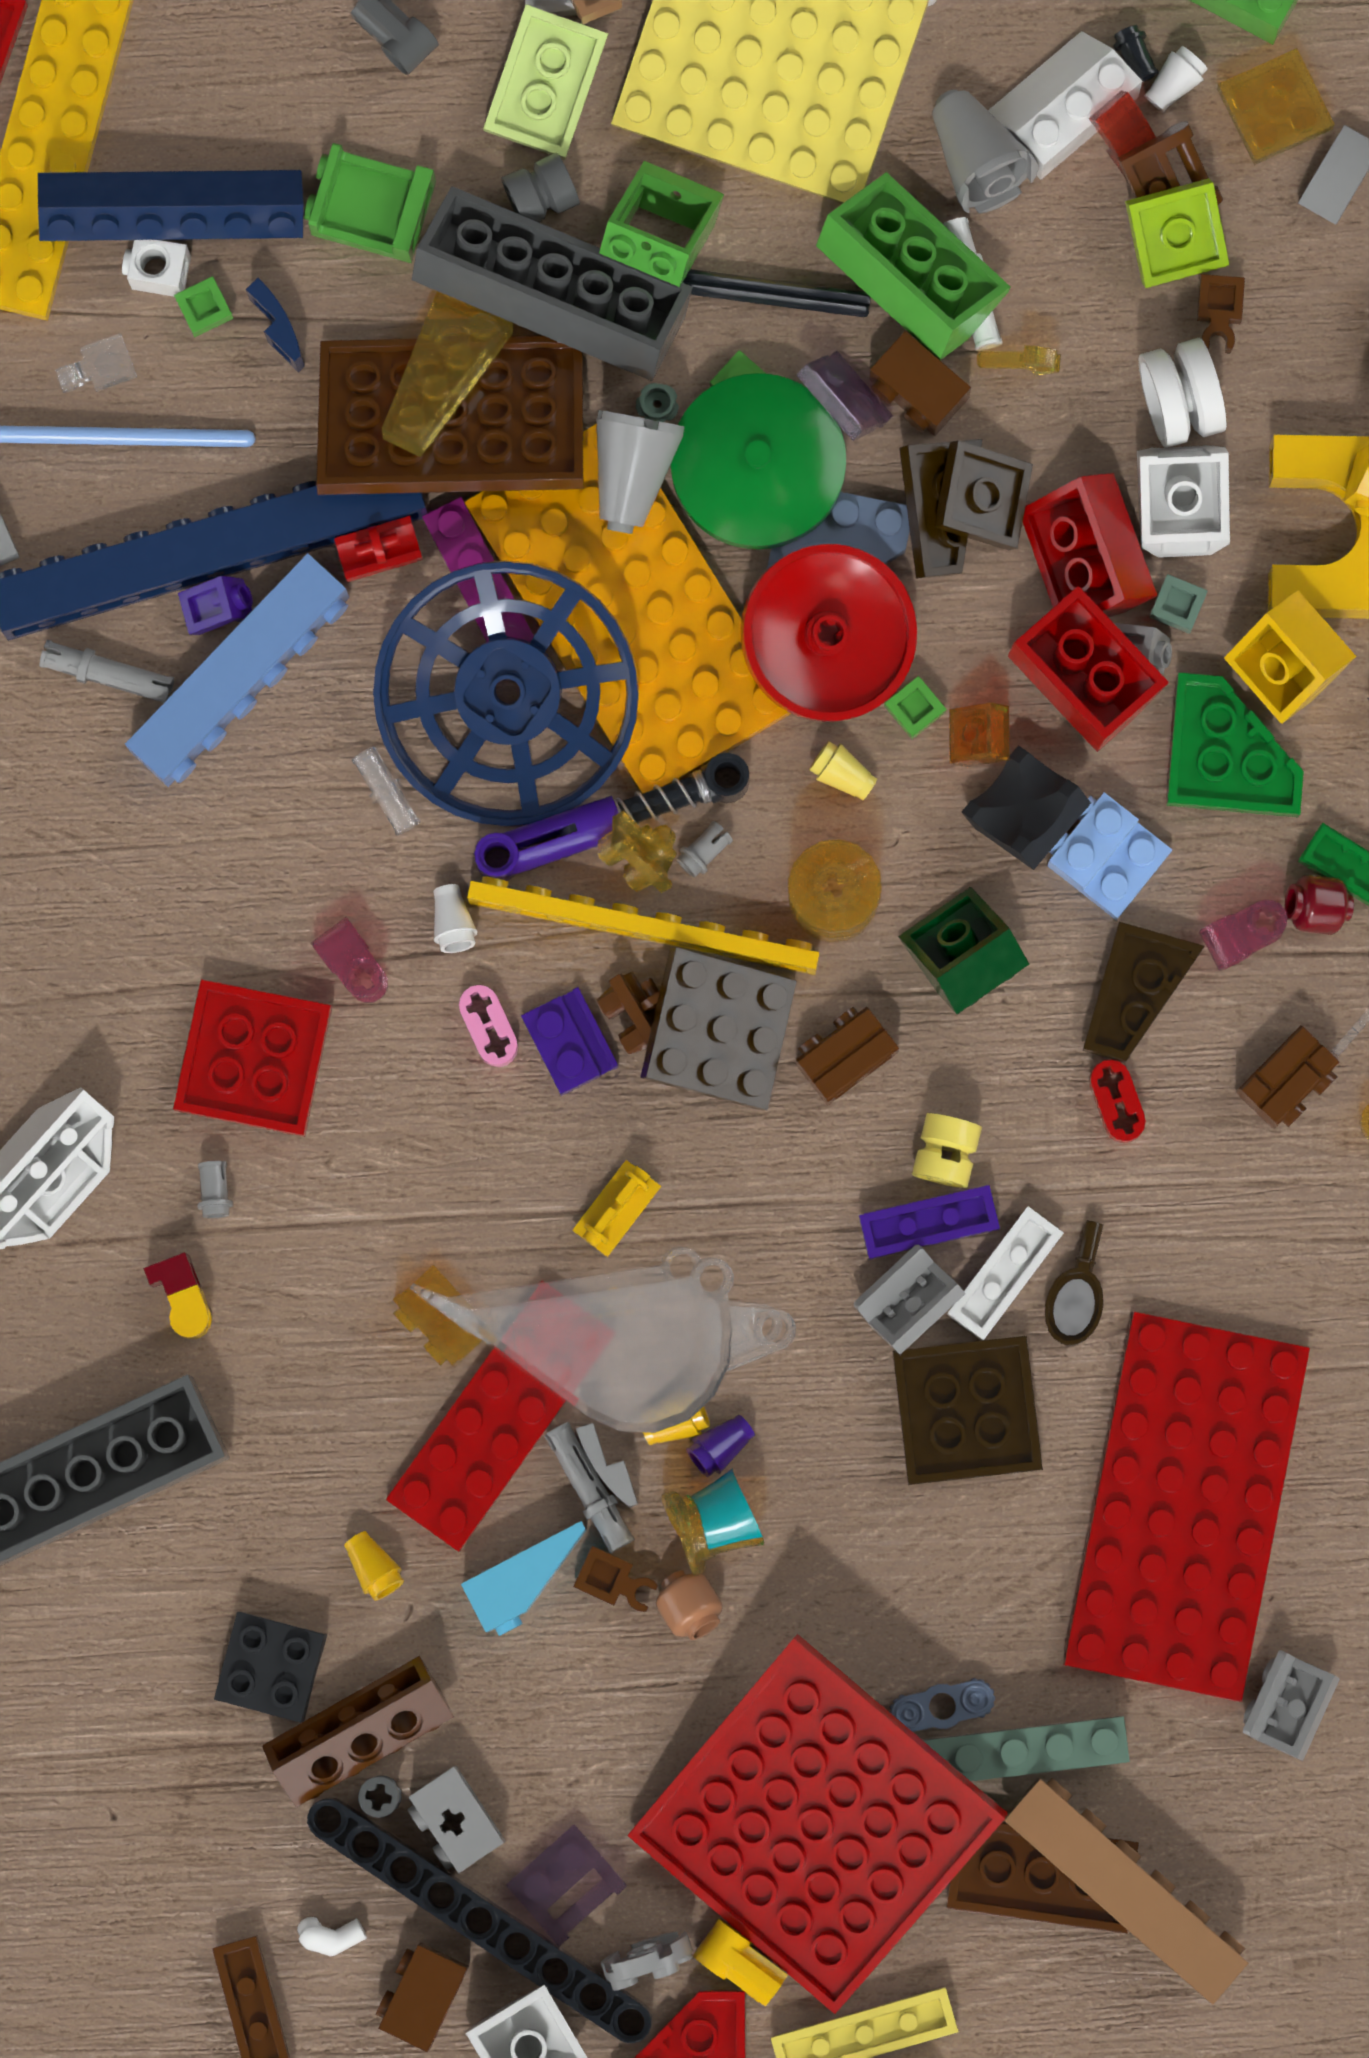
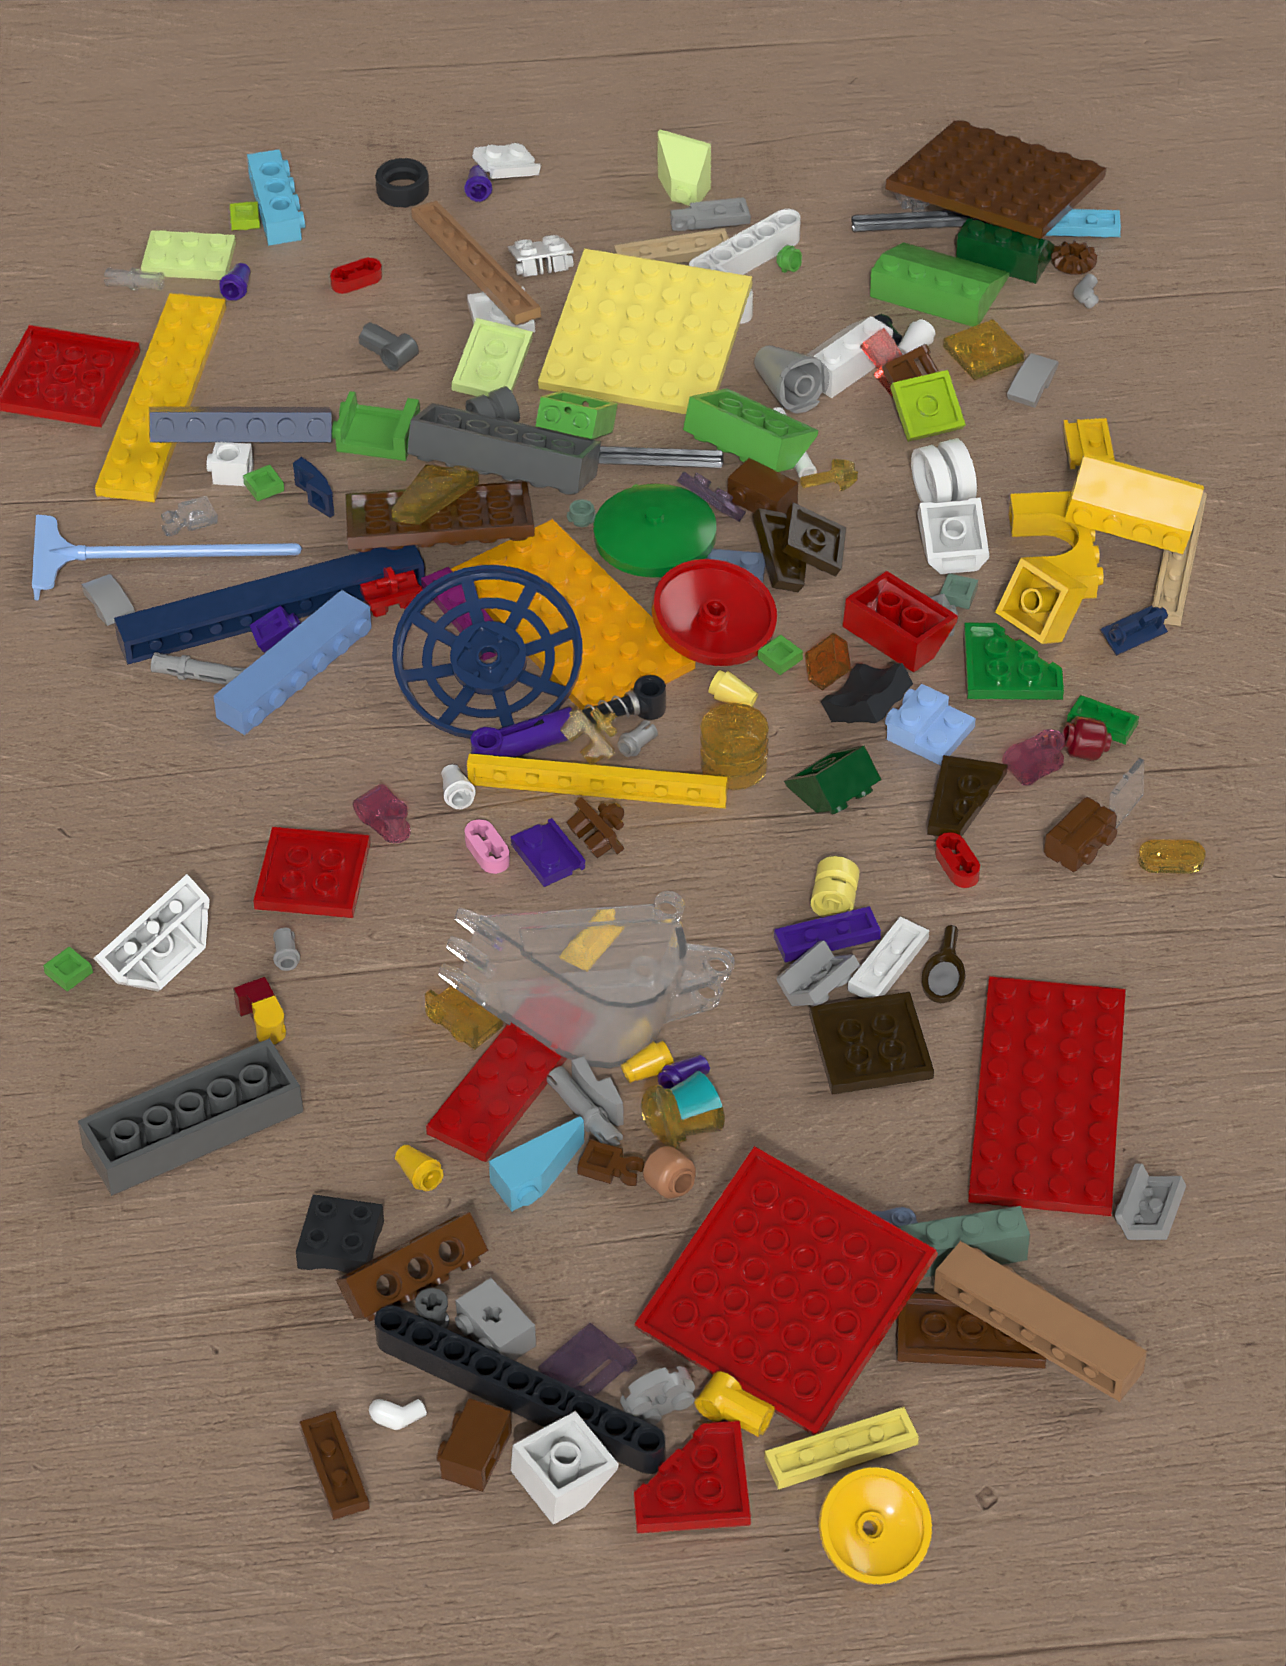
camera: 10 degrees left, 35 degrees down
(386, 790) = (403, 720): clear pin -> none
(632, 466) = (568, 522): light grey cone -> none
(718, 1029) = (657, 828): plate -> none
(846, 1054) = (754, 841): reddish brown brick -> none
(1088, 541) = (890, 547): red slope -> none
(1220, 305) = (968, 436): reddish brown plate -> none

